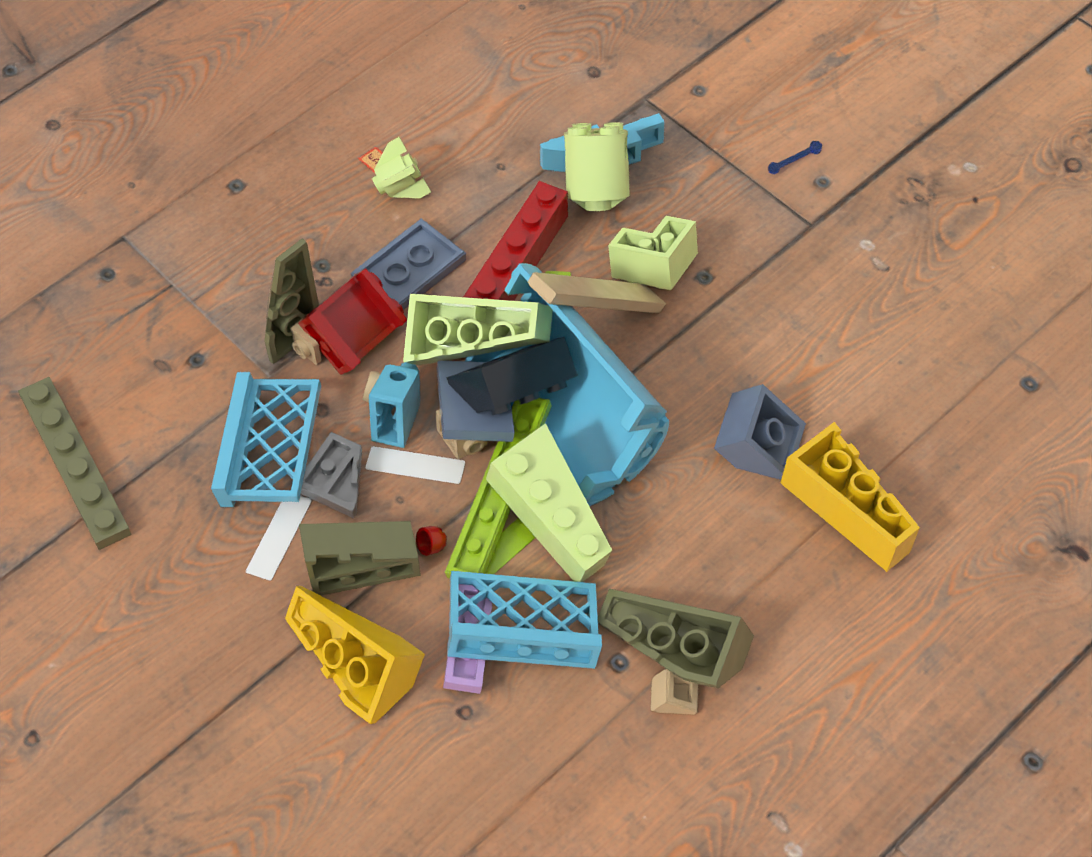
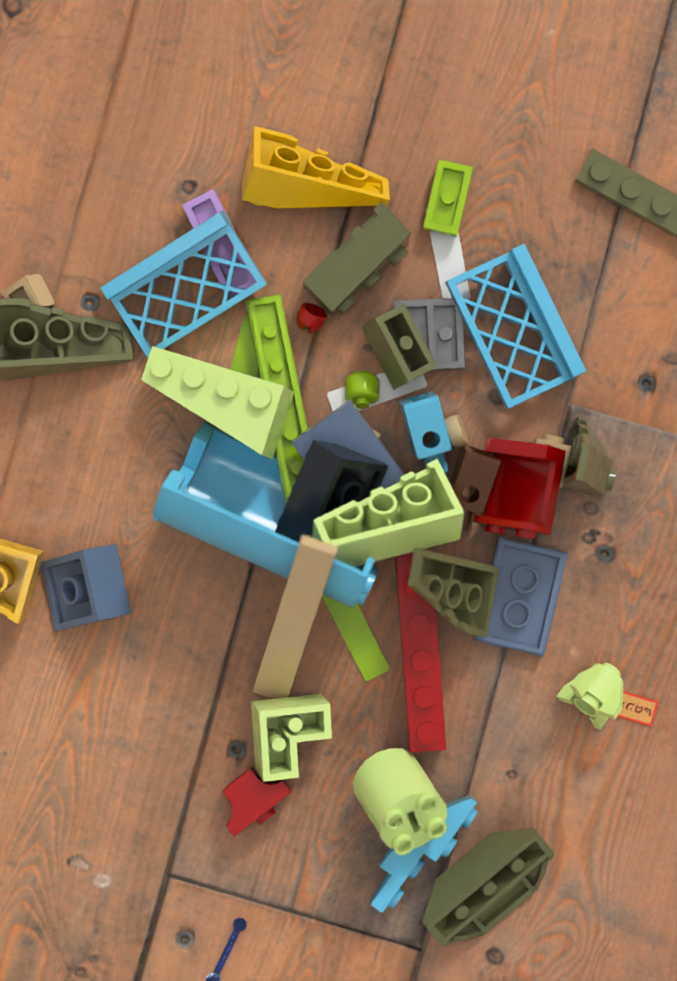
camera: 145 degrees right, 30 degrees up
(246, 570) = (447, 198): none -> lime plate
(373, 470) = (399, 346): none -> olive brick
(380, 343) = (475, 469): none -> reddish brown torso
(427, 469) = (362, 388): none -> lime piece
(454, 269) = (456, 589): none -> olive wedge
(570, 103) = (486, 885): none -> olive wedge
(716, 231) = (253, 799): none -> red brick

